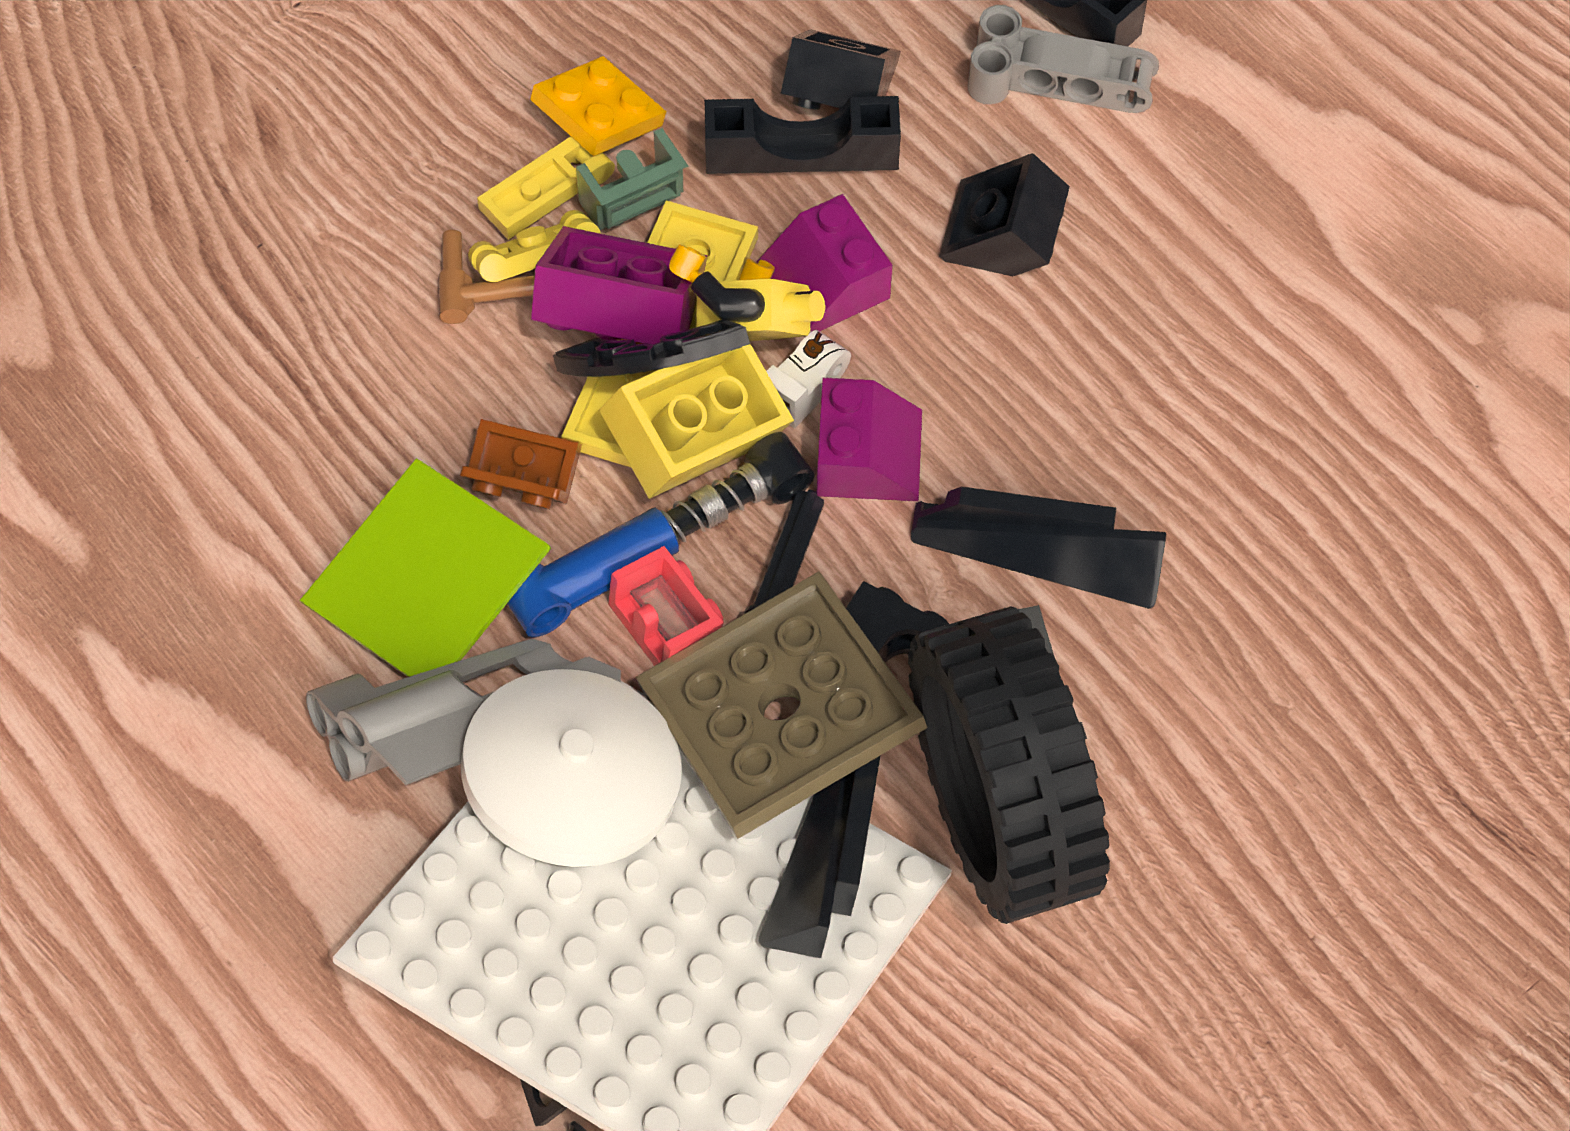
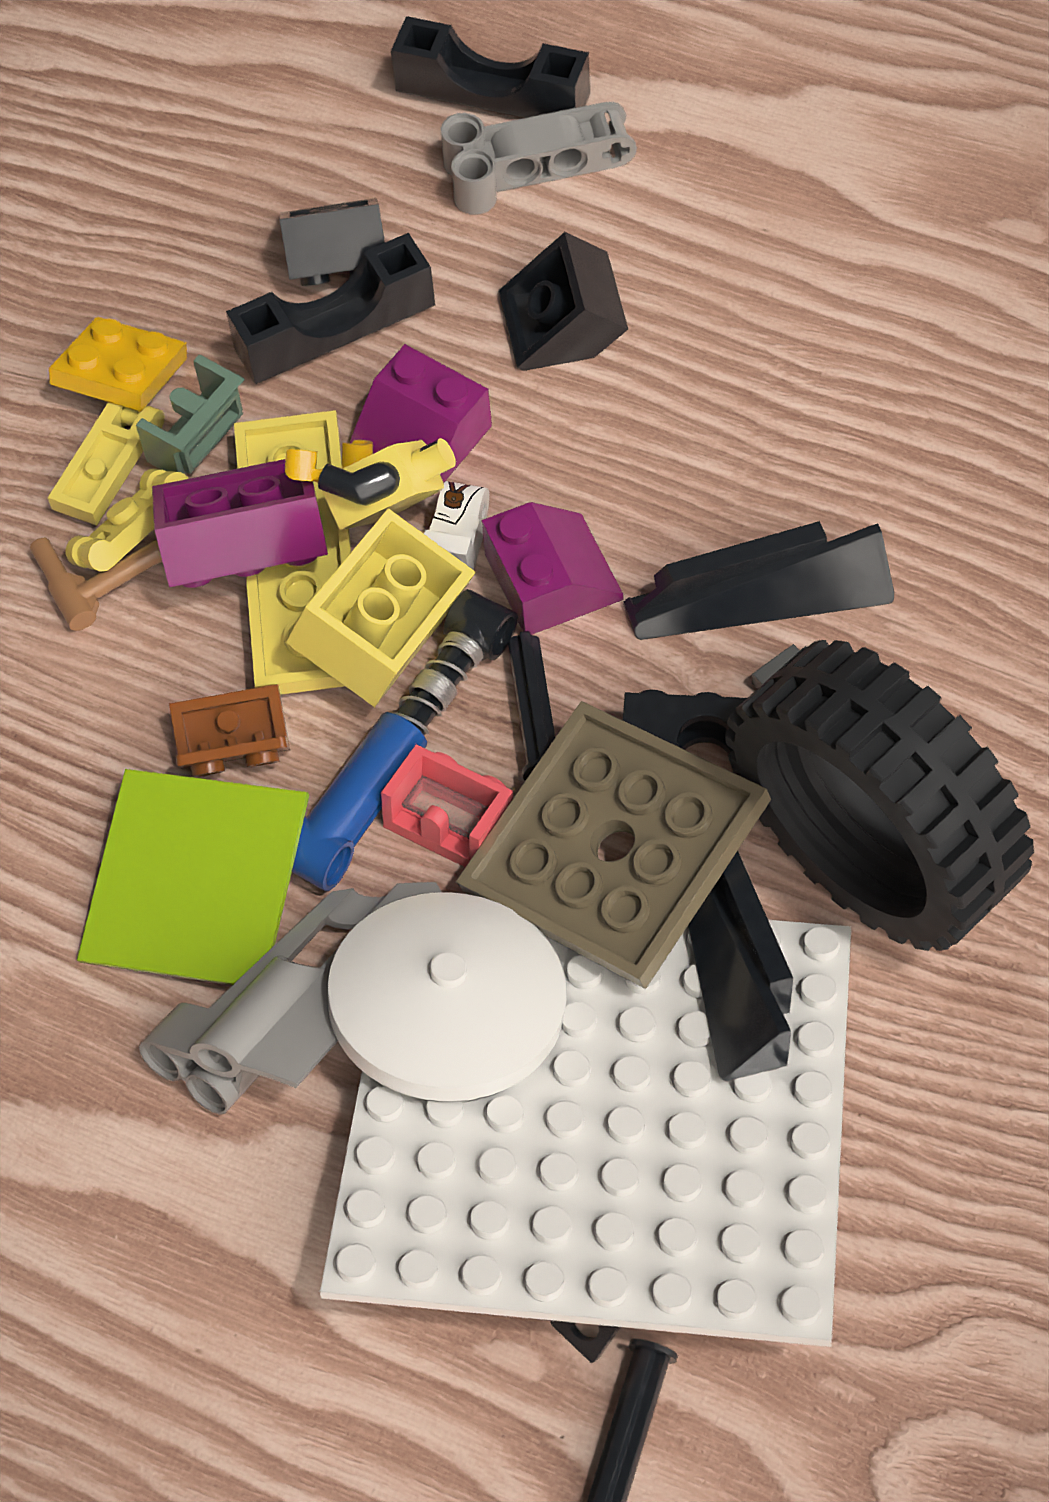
camera: 20 degrees left, 0 degrees up
(622, 357) = (282, 583): black tile -> none

